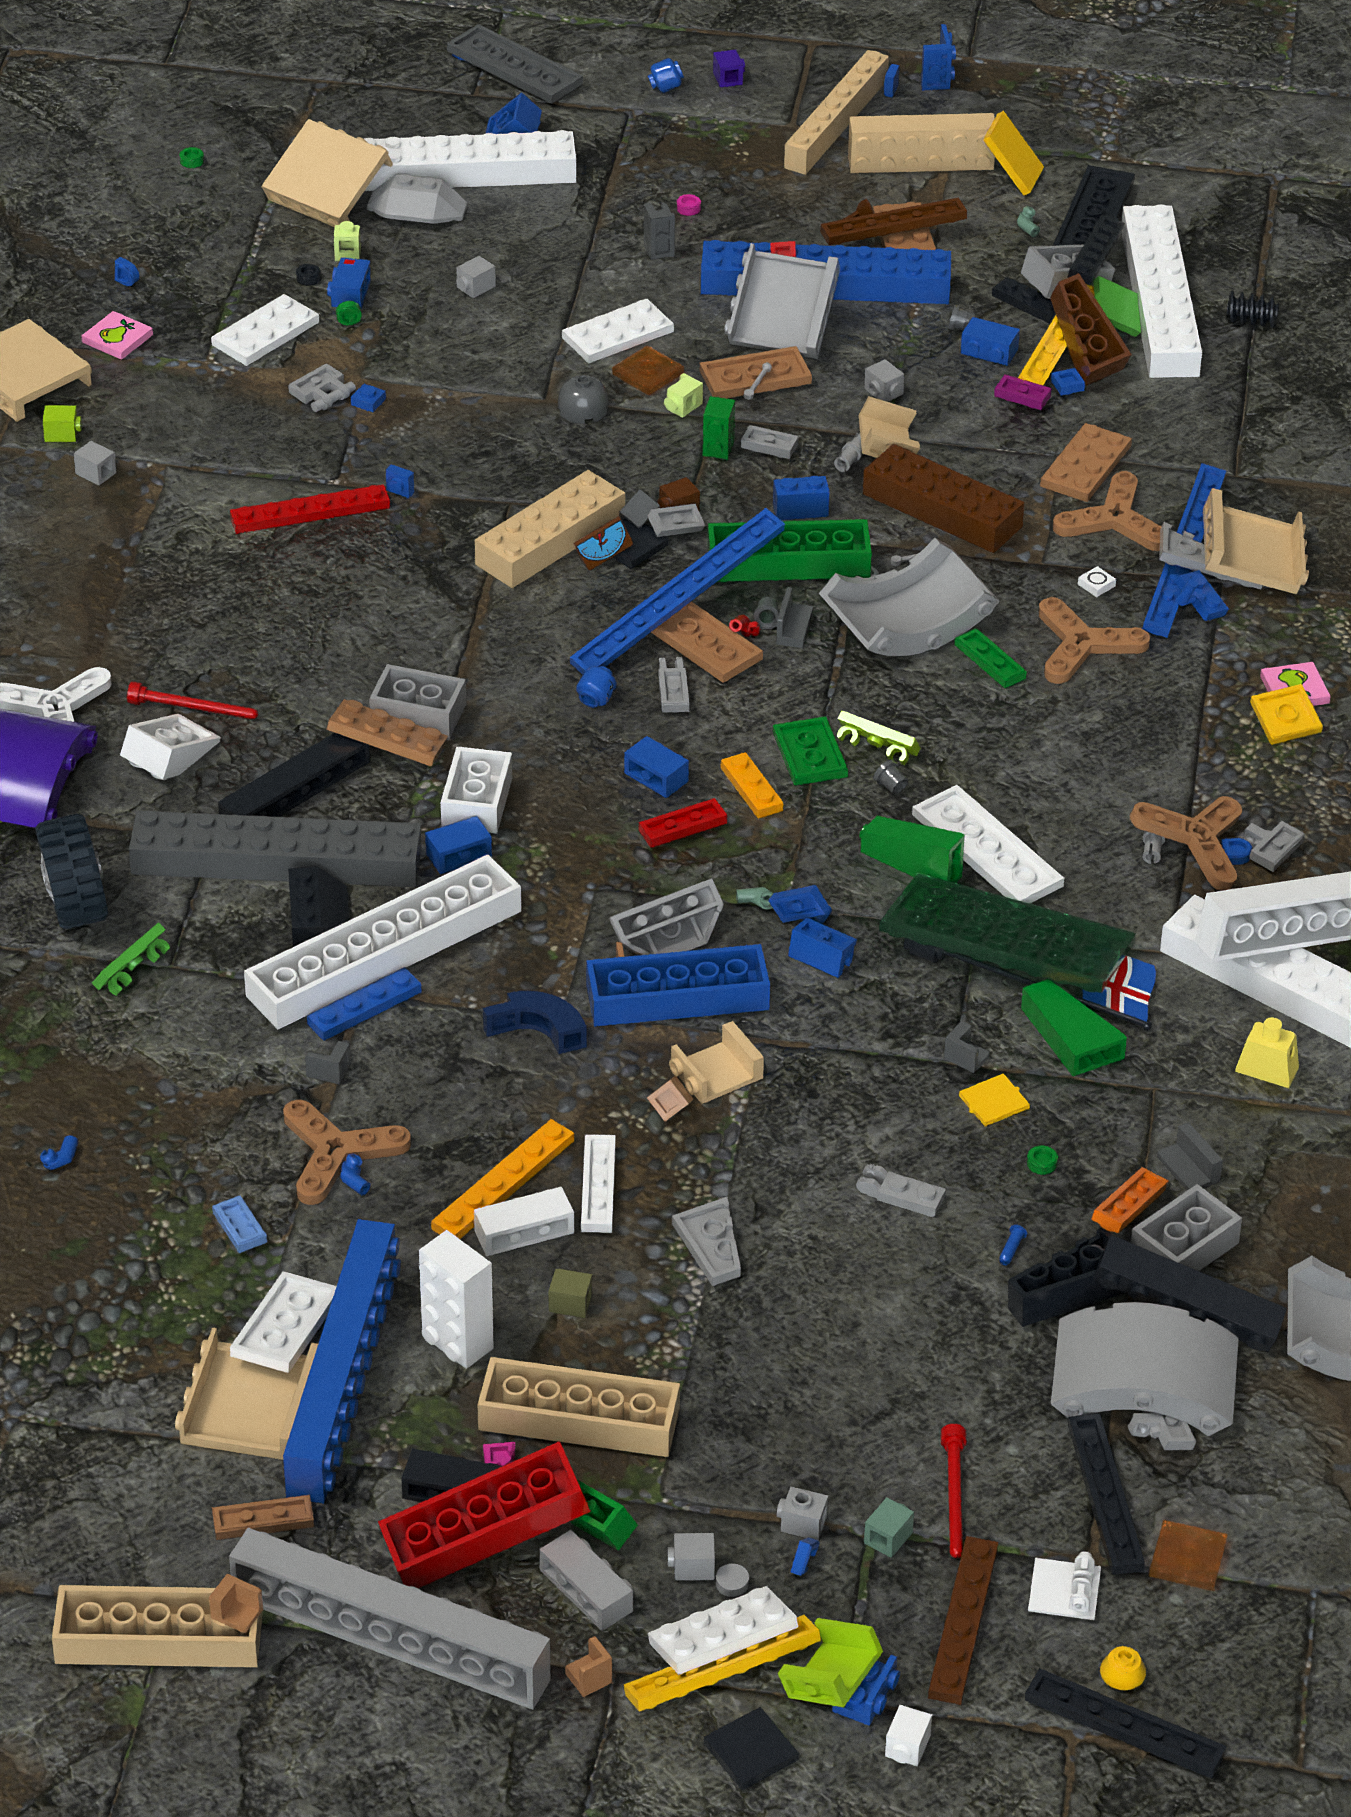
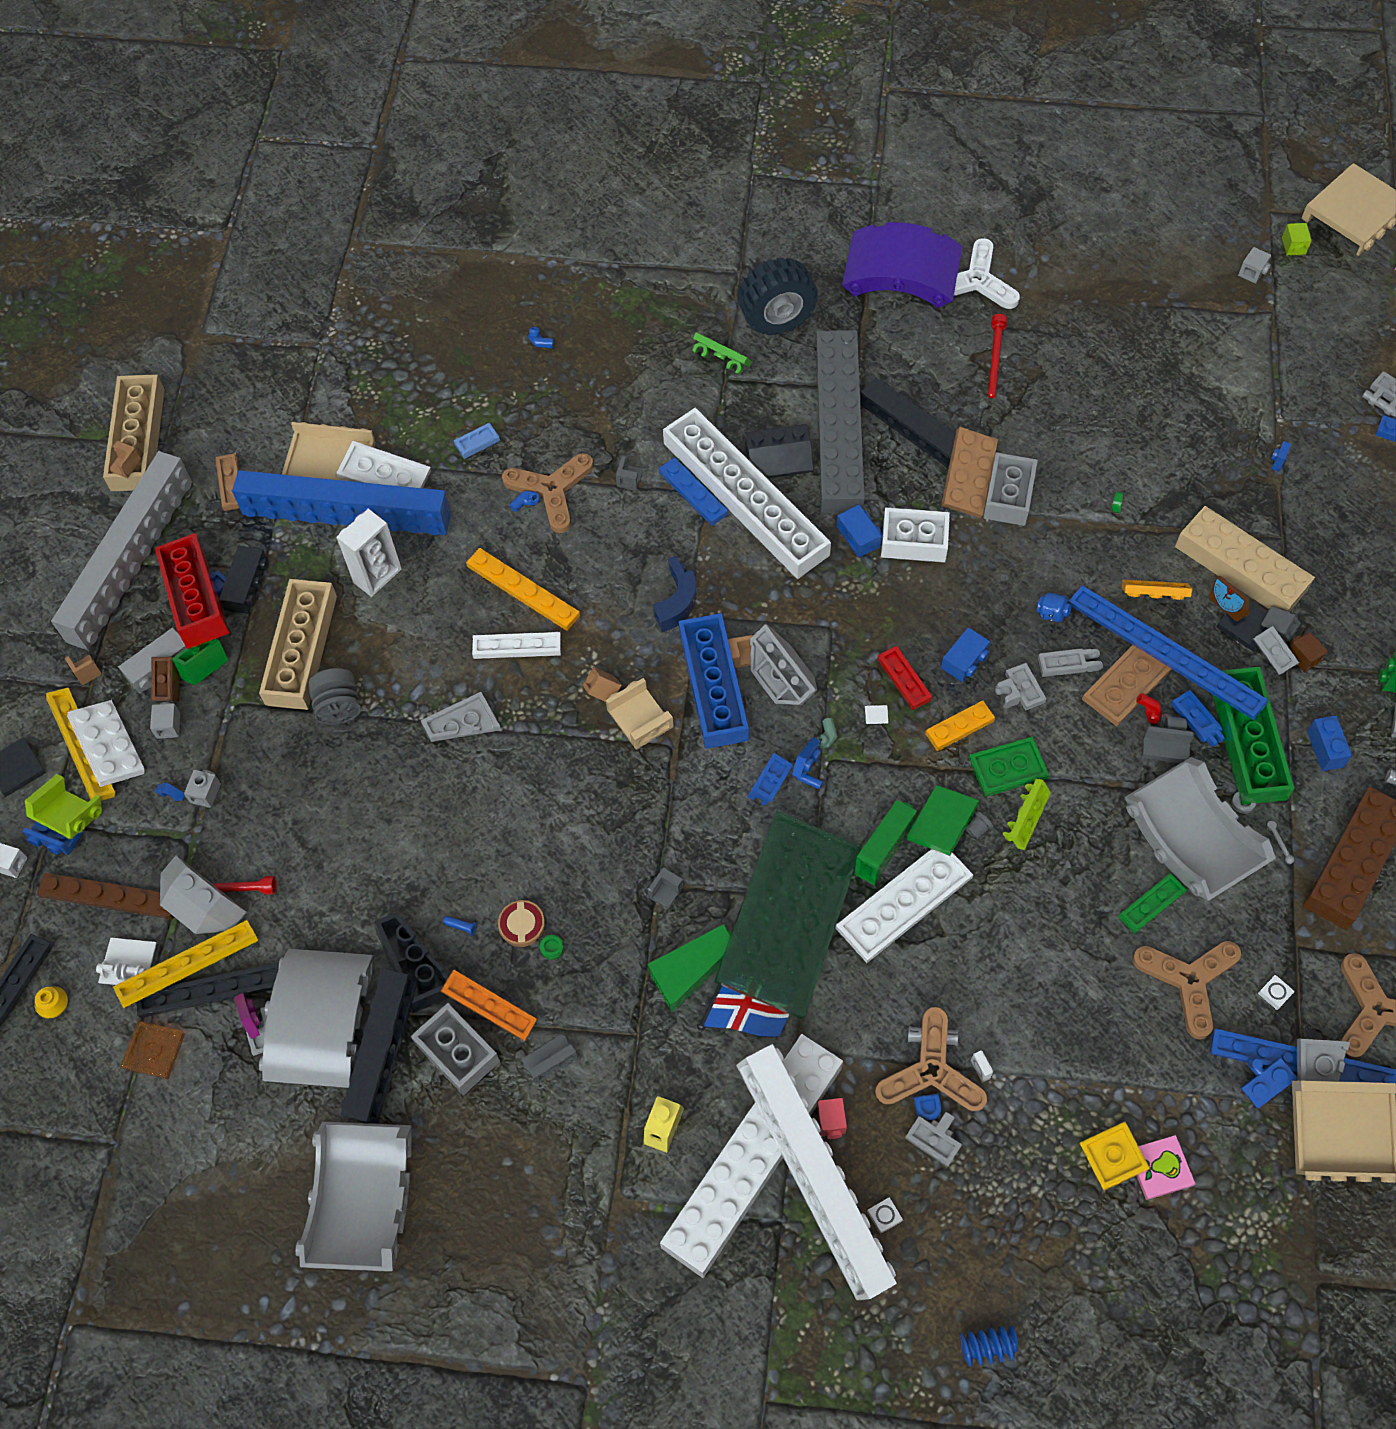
camera: 90 degrees right, 20 degrees up
(167, 745) = (945, 346): white slope -> none
(309, 508) = (1238, 405): red plate -> none
(446, 619) = (1117, 502): none -> green tile
(499, 1453) = (271, 604): dark pink tile -> none
(523, 1221) = (478, 601): white brick -> none
(570, 1293) = (407, 634): olive panel -> none
(577, 602) = (1156, 589): none -> light orange plate
(625, 1557) = (164, 679): none -> reddish brown slope
(682, 1357) = (334, 696): none -> dark grey wheel
(706, 726) = (1020, 687): none -> light grey plate
(728, 857) = (876, 714): none -> white sticker
(732, 1580) = (154, 749): light grey tile -> none
(748, 595) = (1198, 718): none -> blue hinge
(885, 797) = (943, 820): none -> green tile
(889, 1527) = (186, 843): sand green brick -> none
(901, 1190) = (515, 848): light grey hinge -> none
(973, 1506) = (196, 900): none -> light grey wedge
(994, 1099) = (617, 912): yellow piece -> none
(1010, 1186) = (521, 923): none -> tile
(1073, 1510) = (185, 964): none -> yellow plate
(1148, 1435) = (248, 1015): none -> magenta plate
(1190, 800) = (982, 1066): none -> white tile

